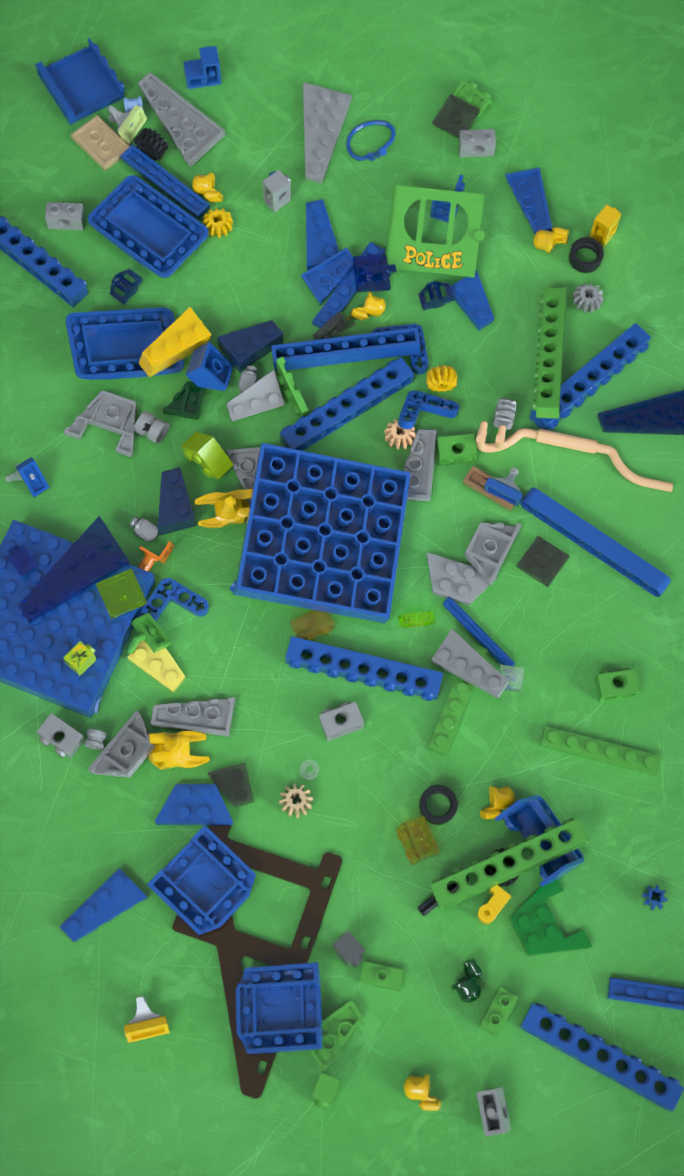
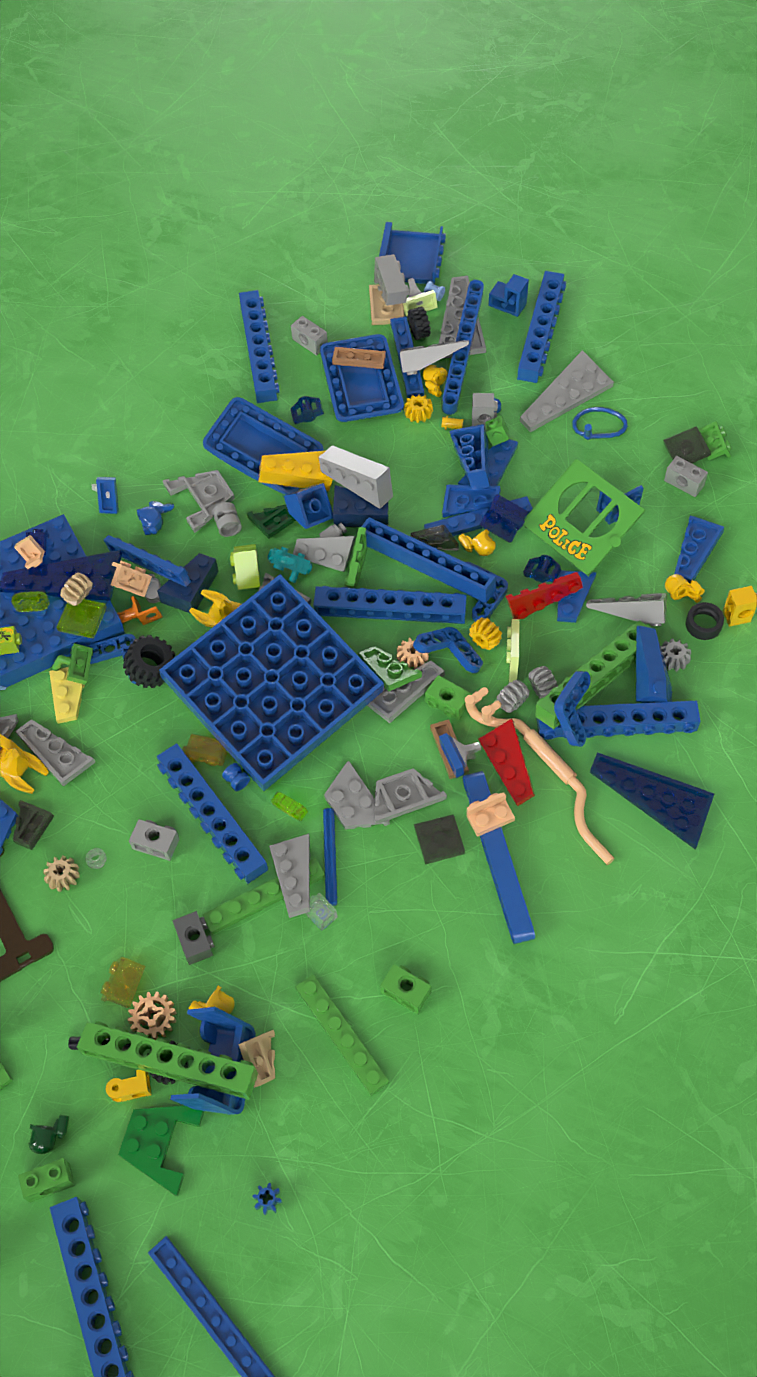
camera: 45 degrees right, 10 degrees down
(30, 571) = (30, 551): none -> light nougat bracket
(62, 609) = (30, 601): none -> clear neon green beam
(84, 469) = (151, 516): none -> blue animal
(96, 120) = (390, 280): none -> light grey wedge
(104, 573) = (76, 589): none -> tan gear
(127, 508) = (151, 562): none -> blue plate
(129, 532) = (131, 580): none -> light nougat bracket
(134, 209) = (359, 357): none -> medium nougat plate
(184, 177) = (420, 357): none -> wedge
(203, 600) = (147, 648): none -> black tyre
(212, 149) = (465, 332): none -> blue beam
(235, 315) = (358, 474): none -> light grey wedge
(235, 428) = (283, 559): none -> teal piece
(252, 81) = (541, 327): none -> blue brick
(252, 219) = (452, 423): none -> yellow pin
(300, 233) = (473, 453): none -> blue wedge
(301, 200) = (497, 430): none -> bright green brick
(356, 627) = (235, 776): none -> blue wheel
(400, 458) = (387, 669): none -> bright green wing
(426, 767) = (197, 949): none -> dark grey brick
(438, 820) = (160, 952): black tyre -> none
(456, 840) = (161, 1014): none -> light nougat gear
(461, 313) = (546, 594): none -> red wing
(477, 379) = (513, 647): none -> yellowish green wing
(517, 387) = (542, 681): none -> light grey gear
(536, 275) = (647, 608): none -> light grey wedge
(542, 466) = (507, 758): none -> red wing
(561, 391) = (566, 711): none -> blue beam
(561, 810) = (260, 1054): none -> tan wing
(570, 516) = (489, 814): none -> light nougat bracket
(589, 325) = (651, 671): none -> blue wedge

